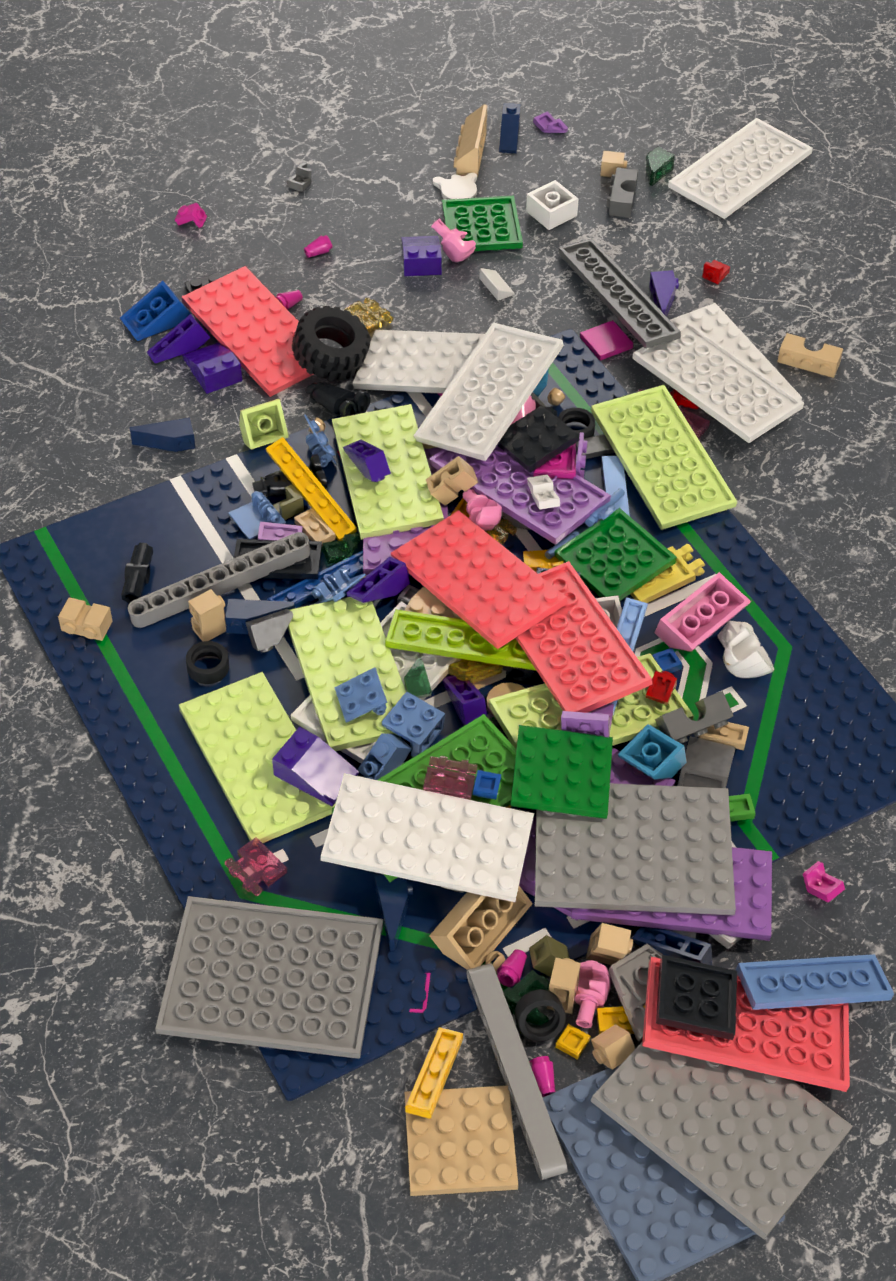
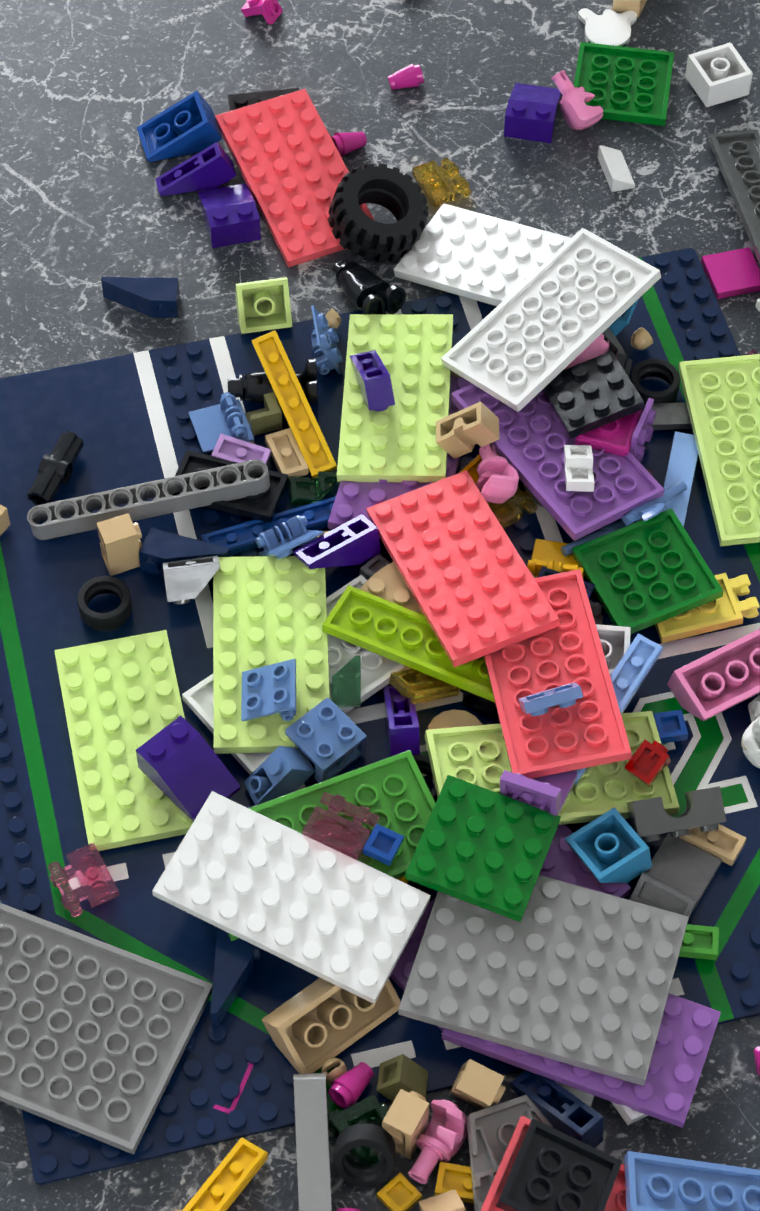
camera: 15 degrees right, 5 degrees up
(572, 659) = (540, 702): none -> medium blue plate

